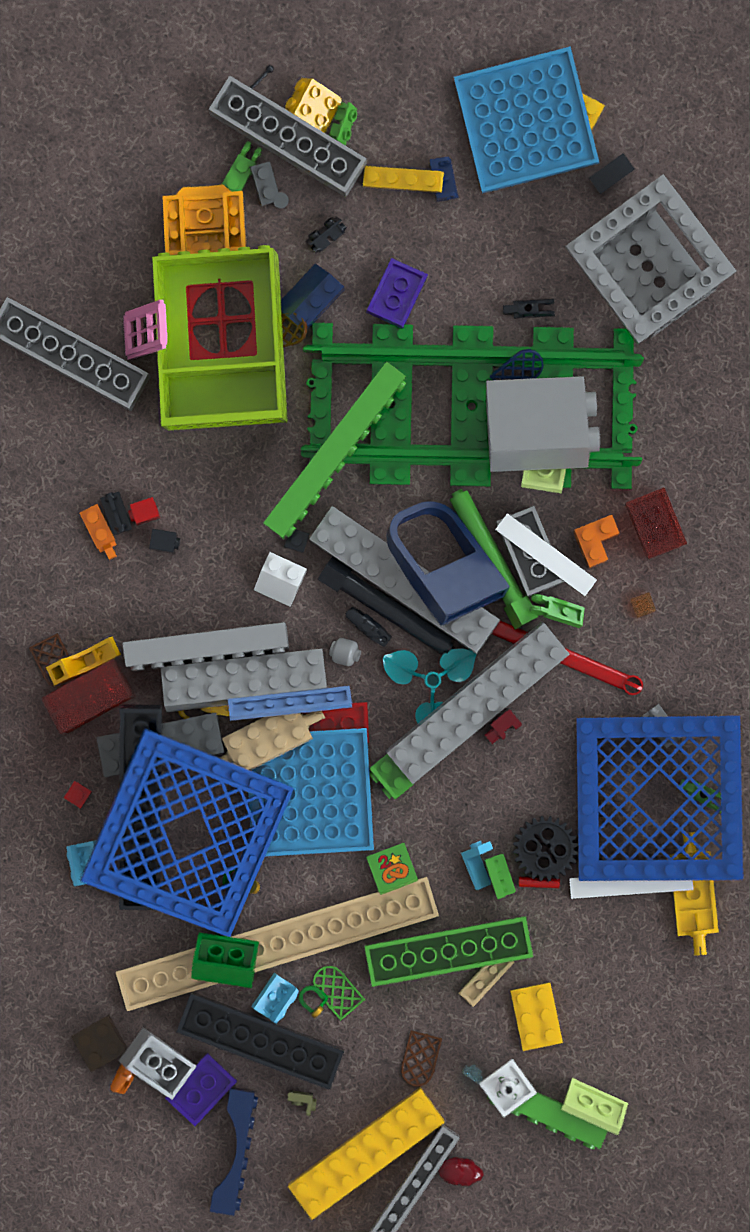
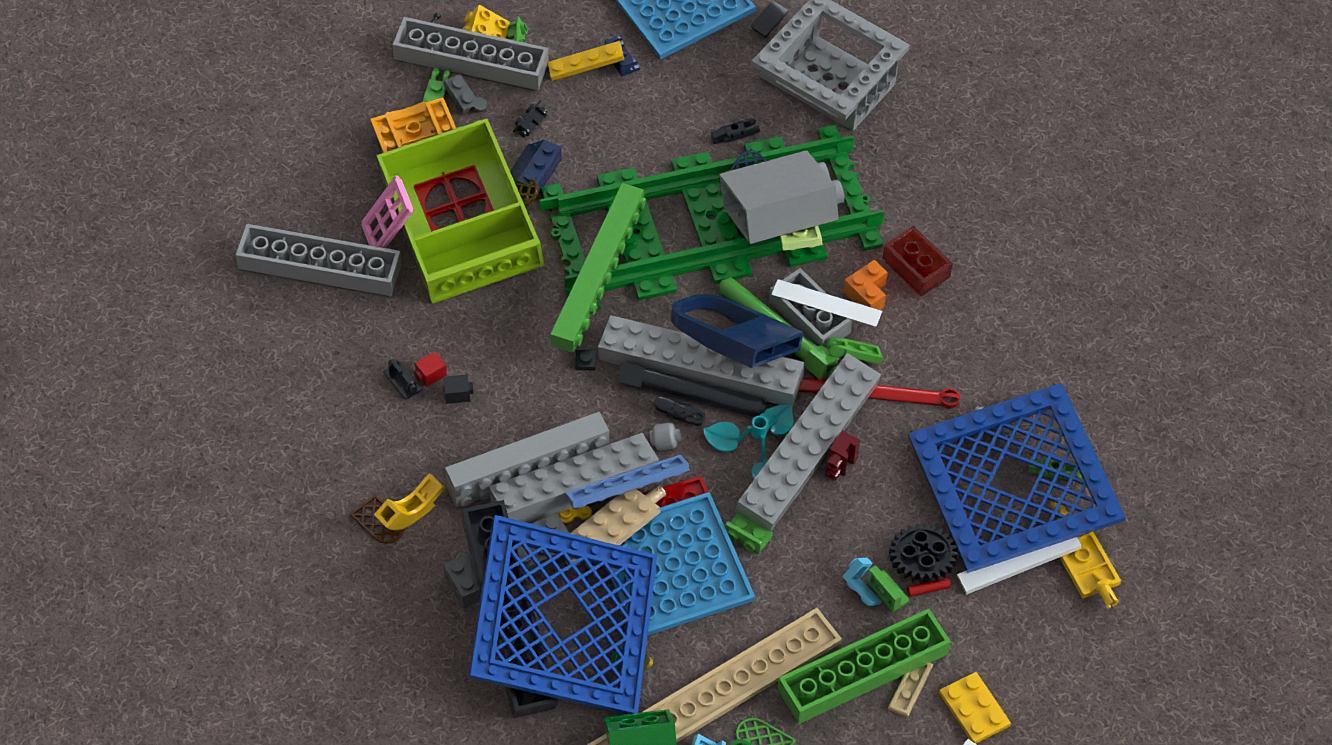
camera: 25 degrees left, 30 degrees down
(77, 794) = (438, 630): red plate -> none
(78, 858) = (467, 691): medium azure bracket -> none
(88, 697) = (423, 531): clear red brick -> none
(99, 530) = (391, 398): orange hinge -> none
(280, 579) = (580, 391): white slope -> none
(392, 868) = (779, 610): bright green tile -> none
(397, 293) = (611, 146): dark purple plate -> none
(643, 605) = (932, 332): clear orange tile -> none

